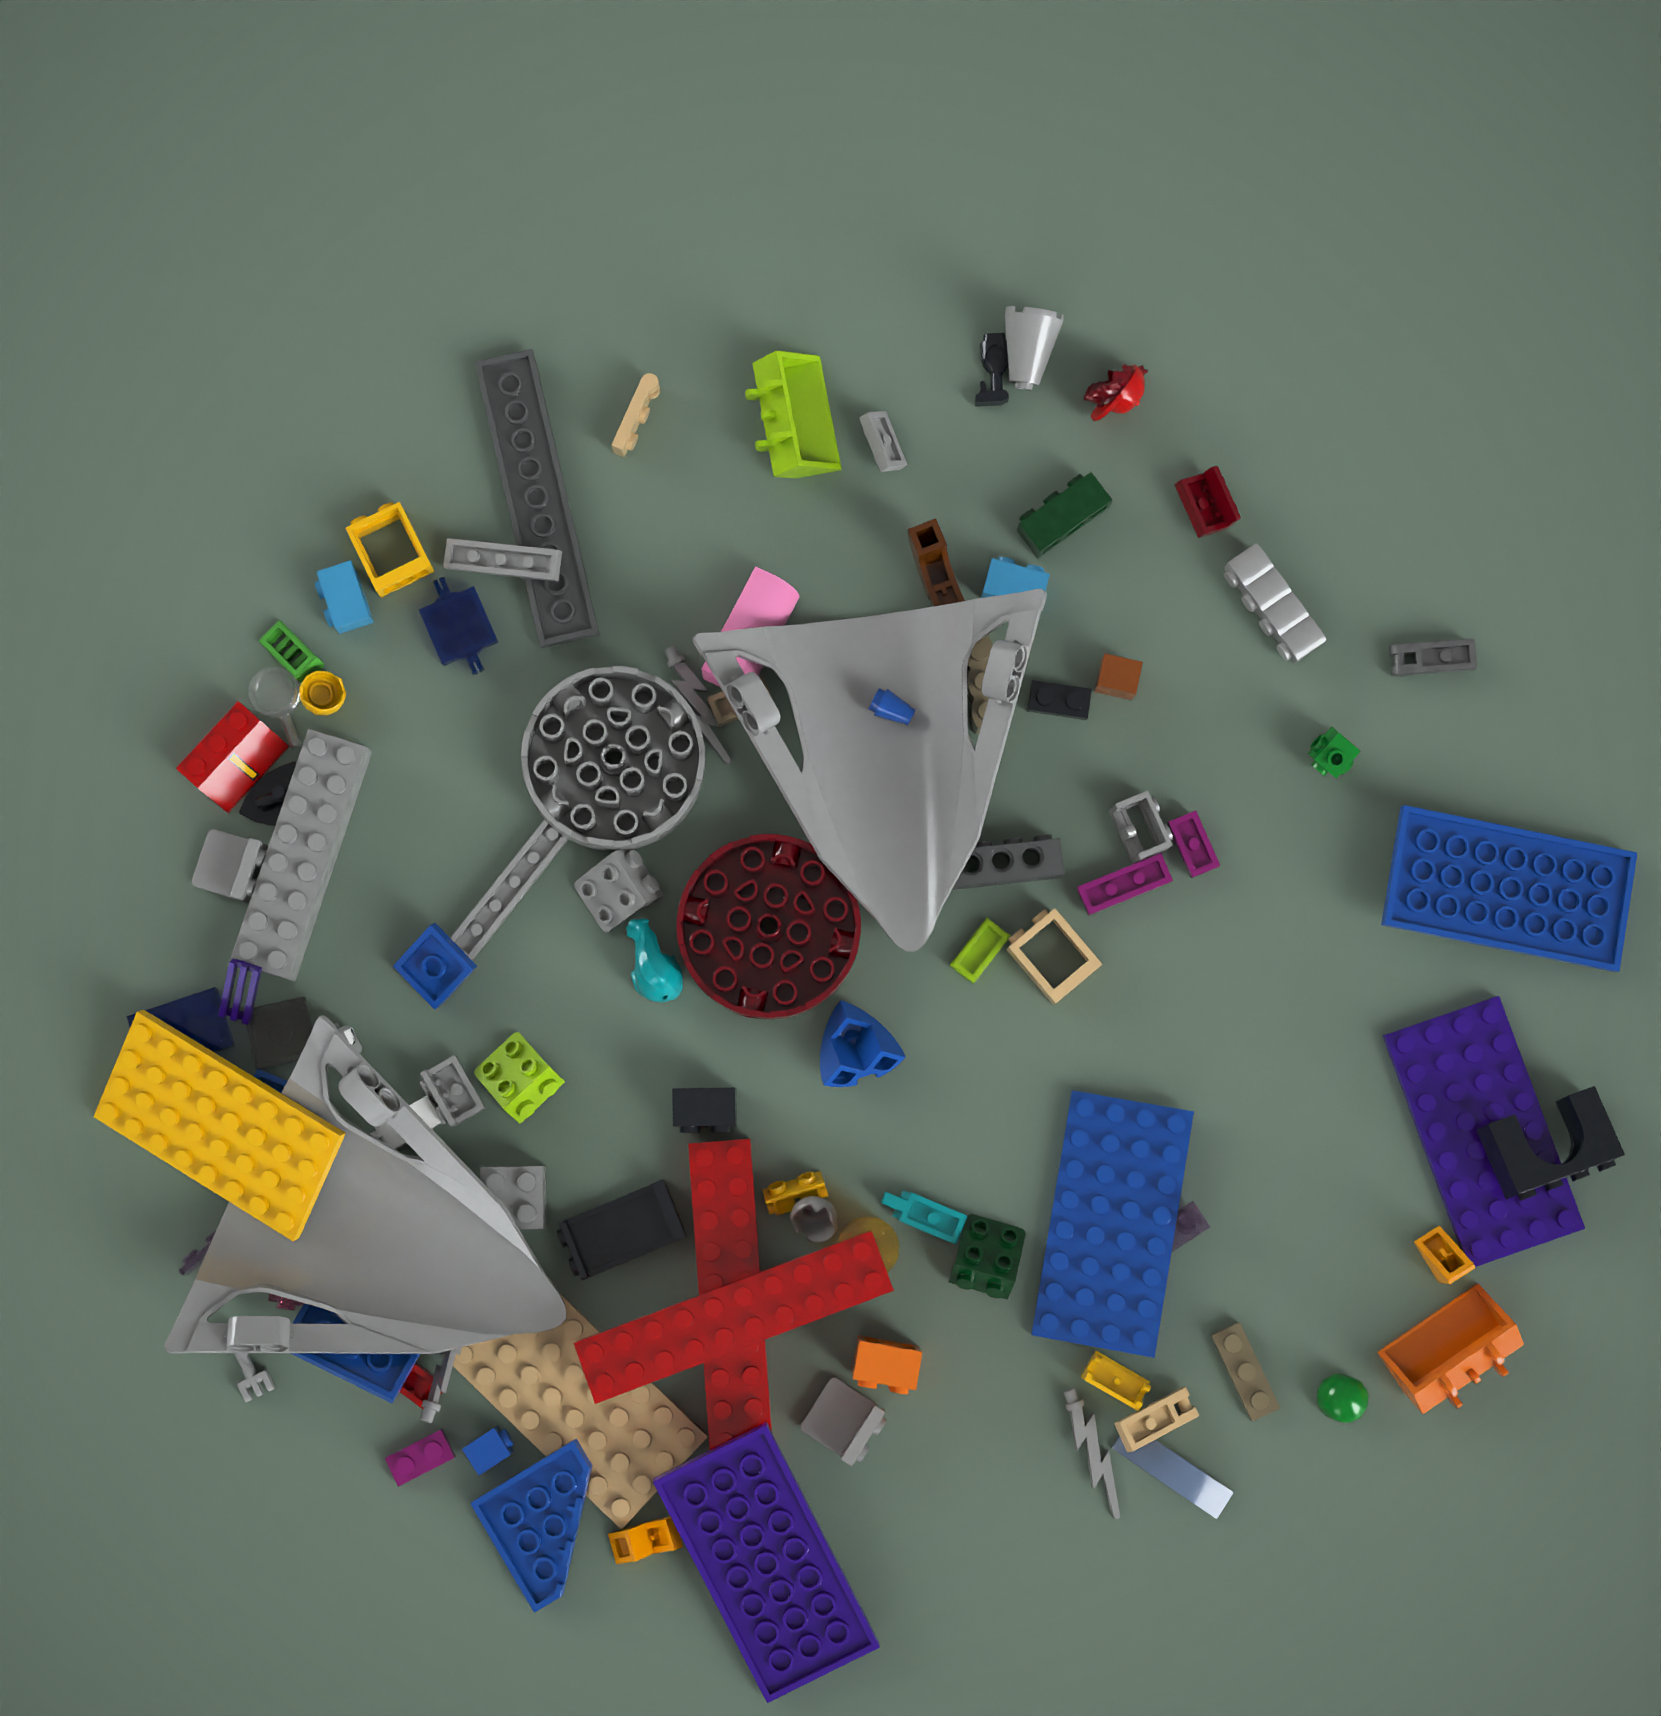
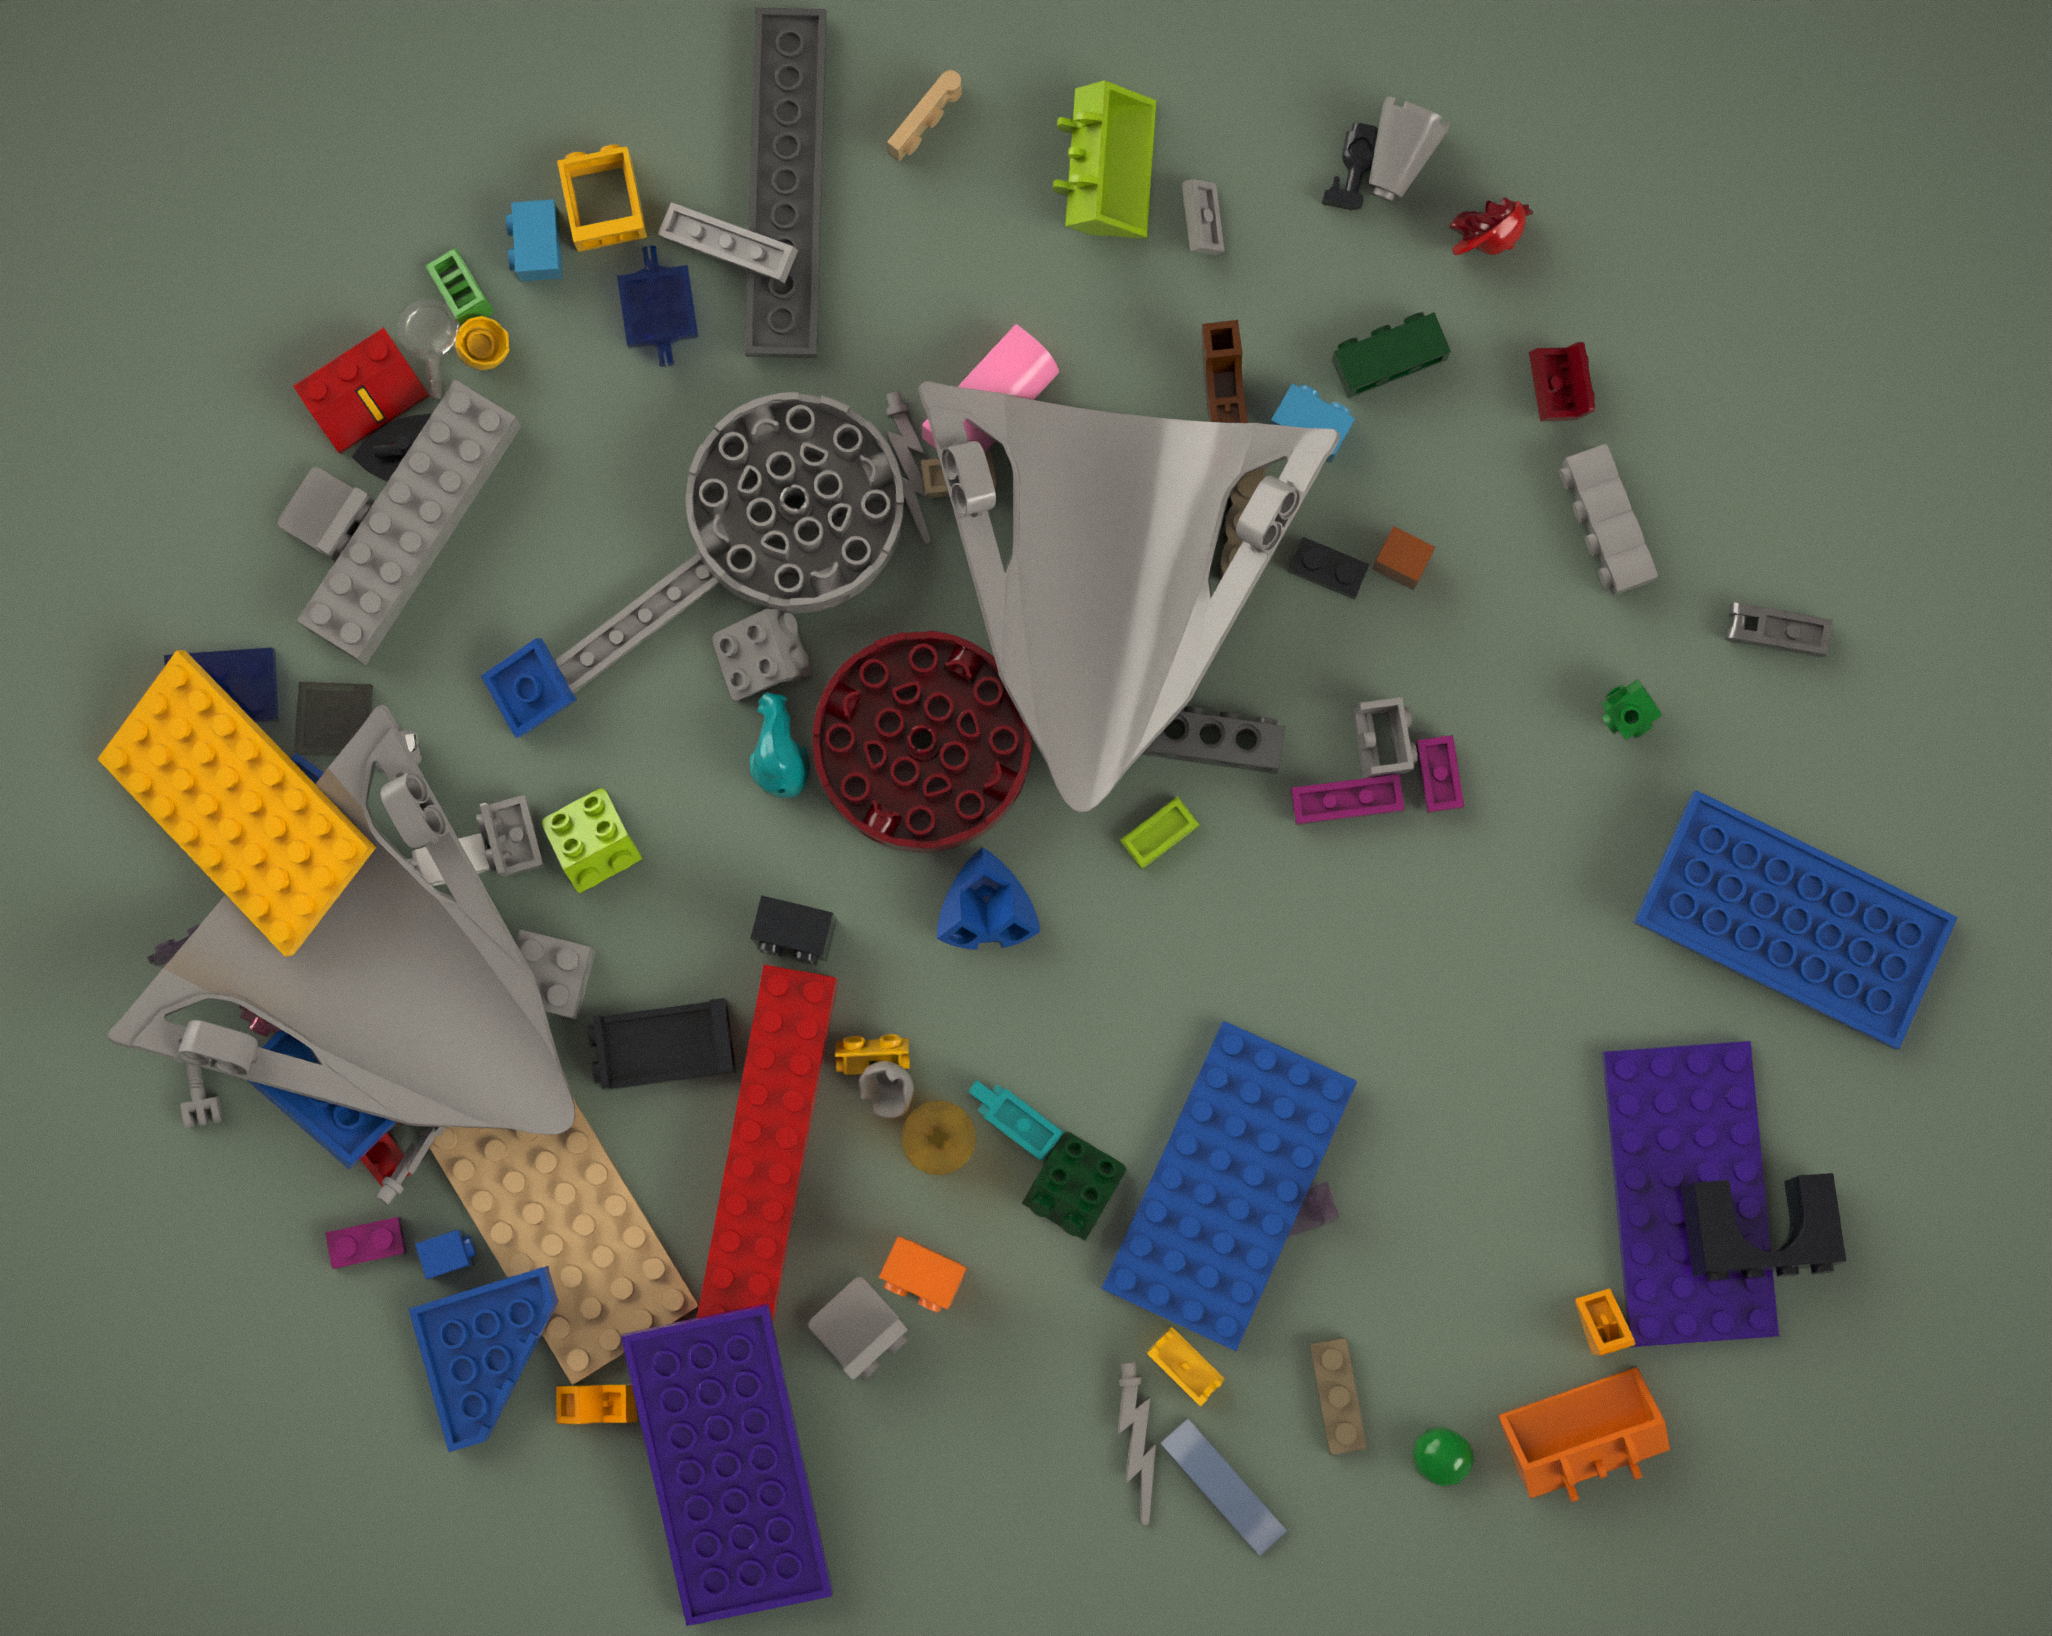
camera: 20 degrees right, 0 degrees up
(235, 1012) = (287, 682): dark purple tile -> none
(733, 1316) = (762, 1172): red brick -> none
(891, 707) = (1130, 525): blue cone -> none
(1021, 937) = (1258, 894): tan window -> none
(1156, 1419) = (1218, 1422): tan plate -> none

